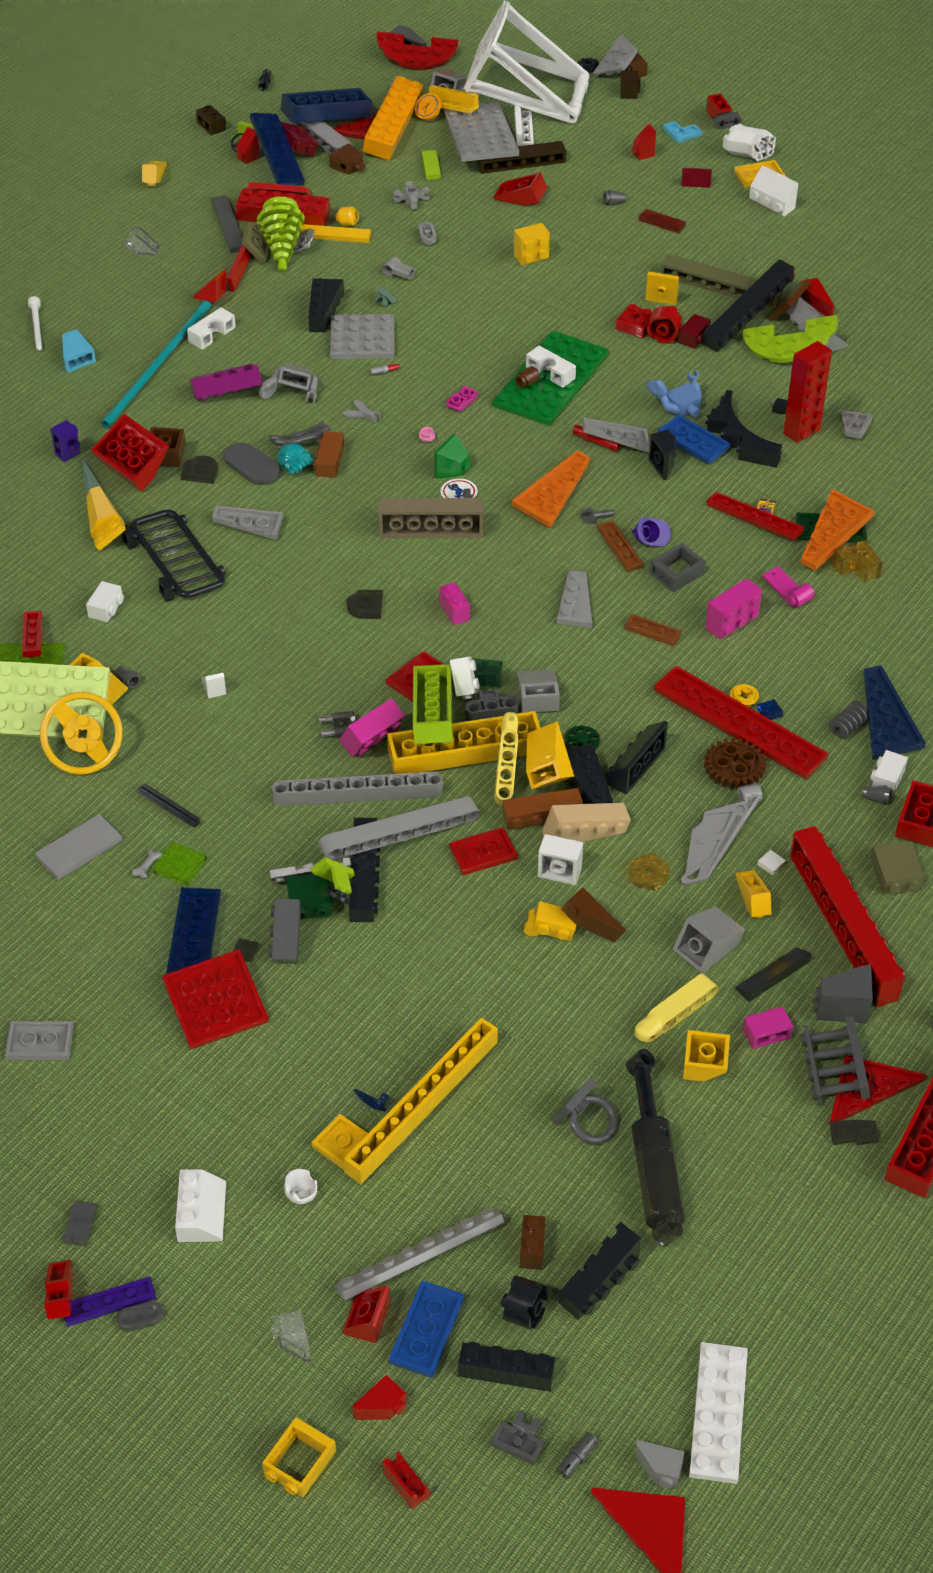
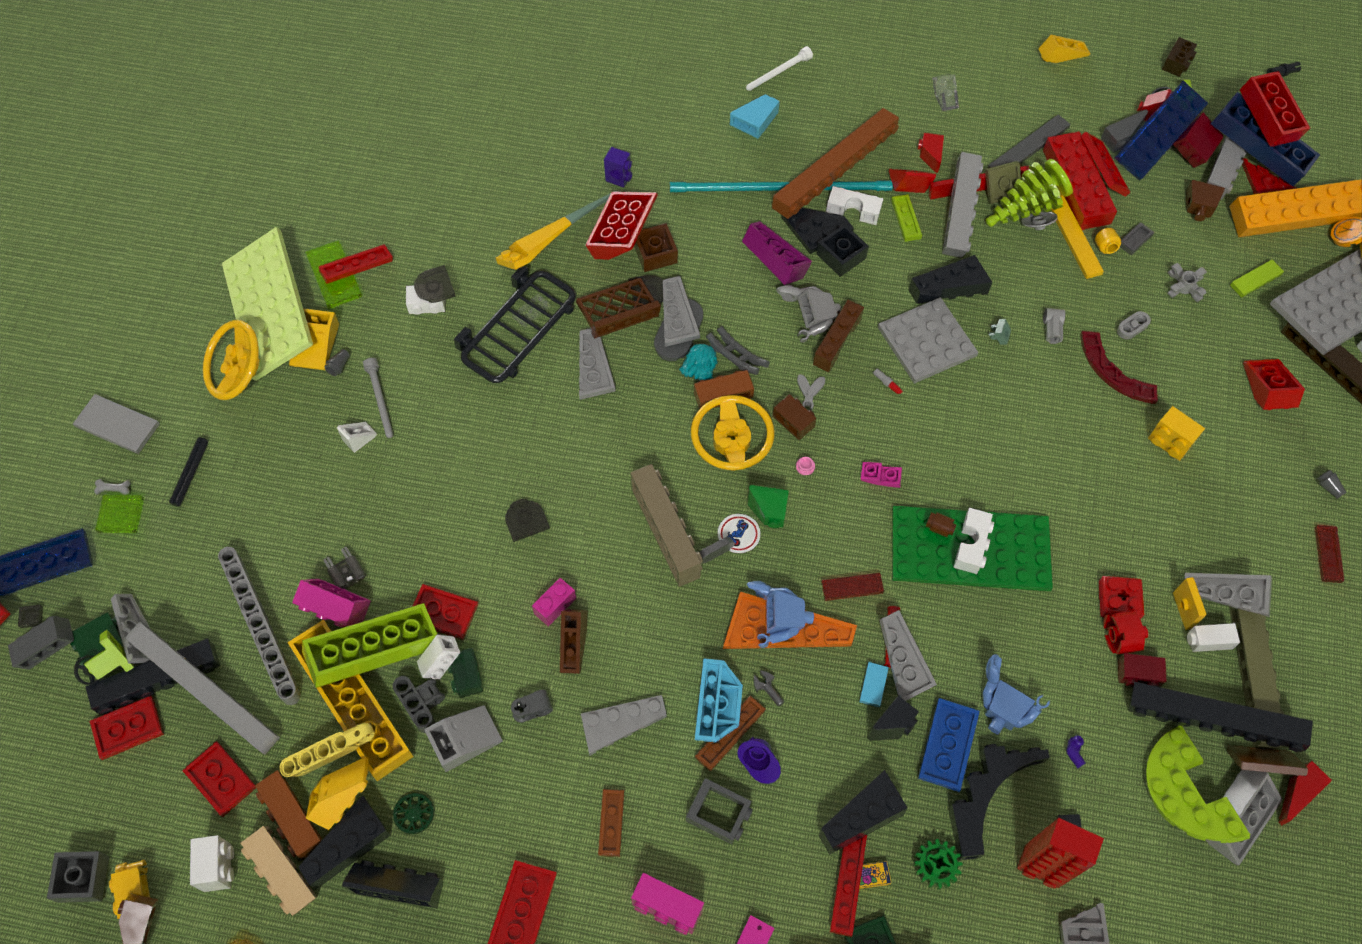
camera: 65 degrees right, 15 degrees up
(102, 583) = (434, 285): none -> clear smoke tile
(150, 656) = (371, 367): none -> light grey piece
(166, 320) = (835, 163): none -> dark orange brick
(193, 270) = (931, 150): none -> red slope
(212, 357) = (813, 226): none -> black plate
(220, 484) = (624, 317): none -> reddish brown fence
(243, 454) = (678, 316): none -> light grey wing
(244, 308) = (906, 218): none -> lime tile
(251, 346) = (842, 250): none -> black brick
(257, 170) = (1121, 132): none -> dark grey slope
(261, 268) = (962, 205): none -> light grey brick
(313, 82) = (1274, 108): none -> red brick
(338, 385) = (834, 340): none -> reddish brown arch
(353, 200) = (1136, 238): none -> flat silver tile
(374, 463) = (732, 426): none -> yellow piece
(381, 424) = (794, 417): none -> reddish brown brick
(399, 903) = (126, 727): none -> red tile
(456, 260) = (1112, 374): none -> dark red tile
(493, 603) = (572, 640): none -> reddish brown slope
(522, 951) = (78, 877): none -> dark grey brick
(535, 641) = (533, 705): none -> dark grey piece
(543, 445) = (852, 586): none -> clear red tile
(545, 474) = (784, 612): none -> medium blue torso
(593, 537) = (718, 701): none -> medium azure wedge
(626, 461) = (874, 684): none -> medium azure tile
(669, 259) = (1236, 590): none -> light grey wing
(691, 289) = (1213, 637): none -> white brick
(722, 487) = (865, 813): none -> black wedge
(732, 385) = (1073, 750): none -> dark purple arm
(776, 473) = (929, 861): none -> green gear

